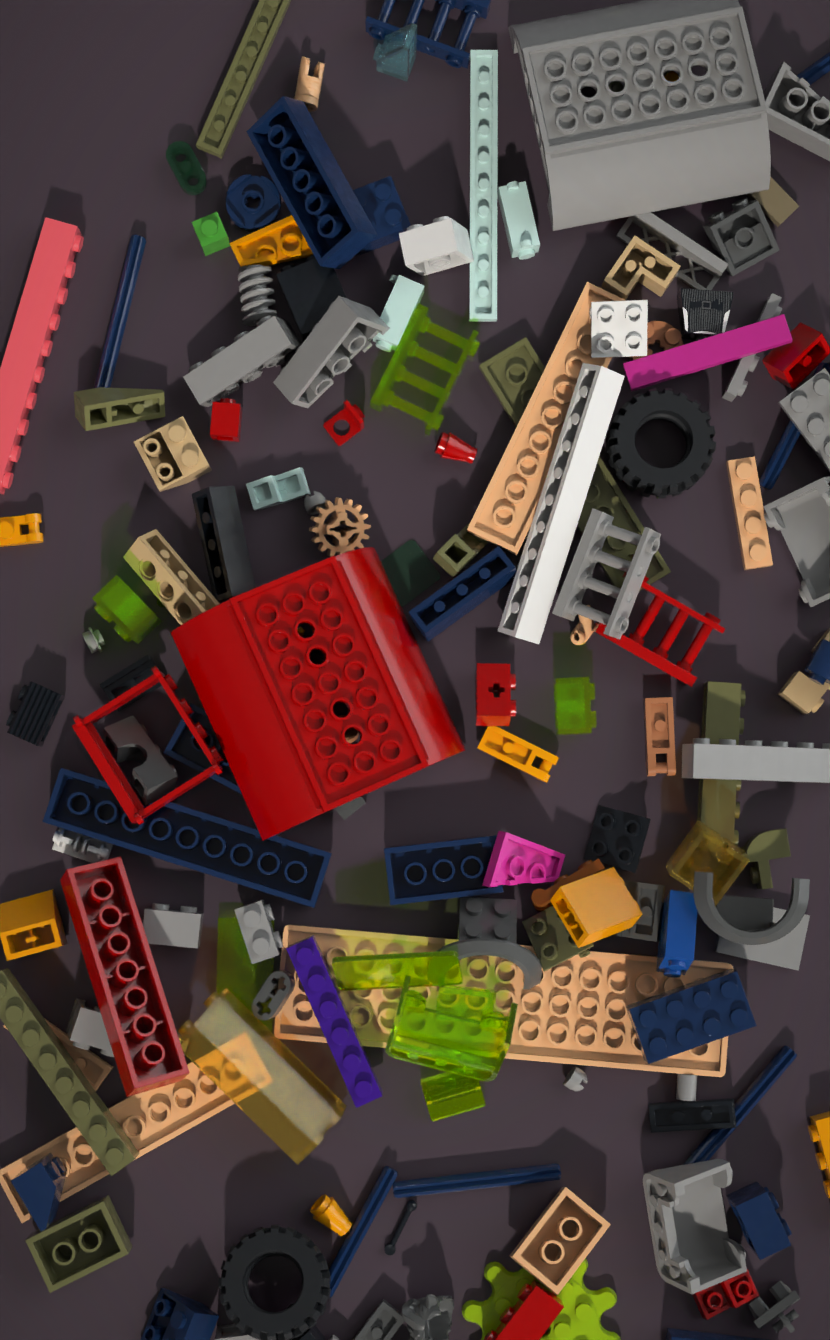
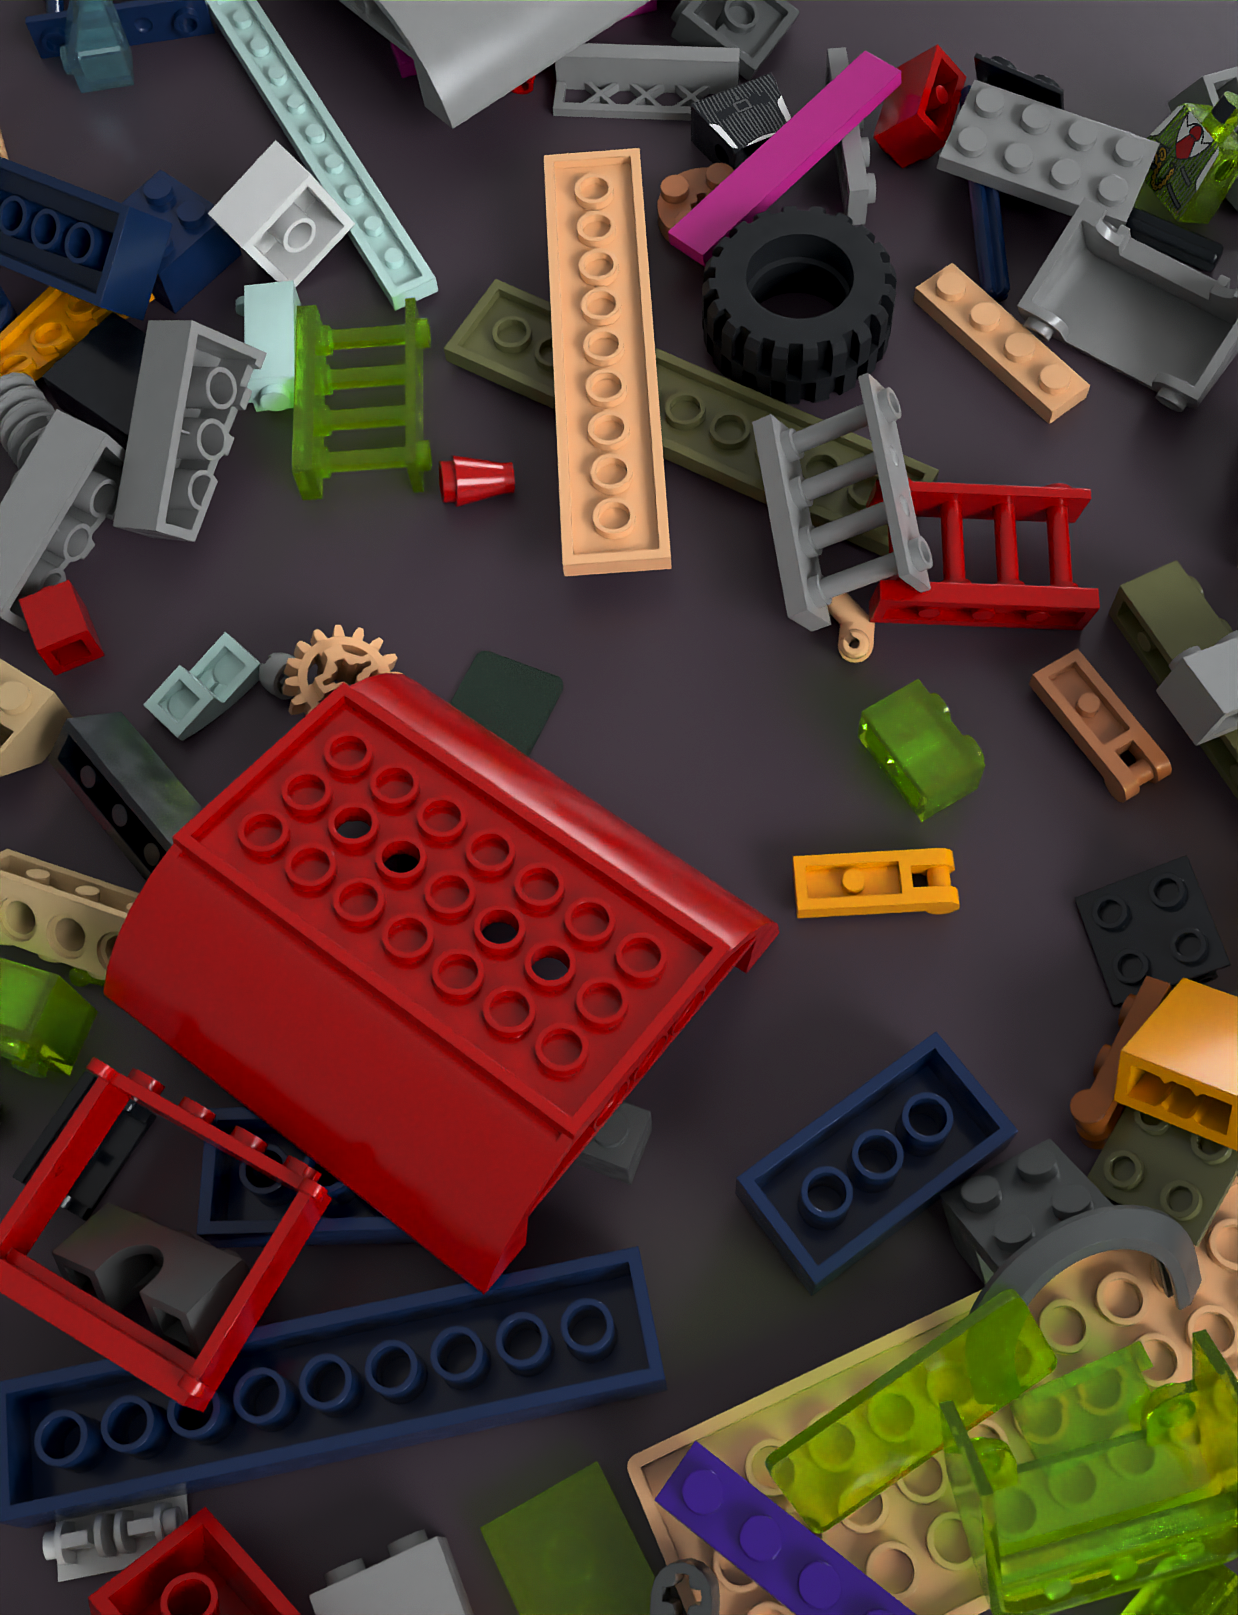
camera: 15 degrees left, 20 degrees down
(258, 931) = (584, 1513): light grey brick -> none
(350, 414) = (277, 519): red bracket -> none
(459, 551) = (569, 614): olive brick -> none
(463, 594) = (616, 673): dark blue brick -> none
(491, 709) = (772, 802): red brick -> none
(518, 220) = (393, 148): light aqua brick -> none
(521, 861) = (1011, 1056): dark pink wing -> none
(561, 502) = (698, 460): white brick -> none
(618, 328) = (629, 174): white hinge -> none
(642, 265) = (620, 108): tan brick -> none

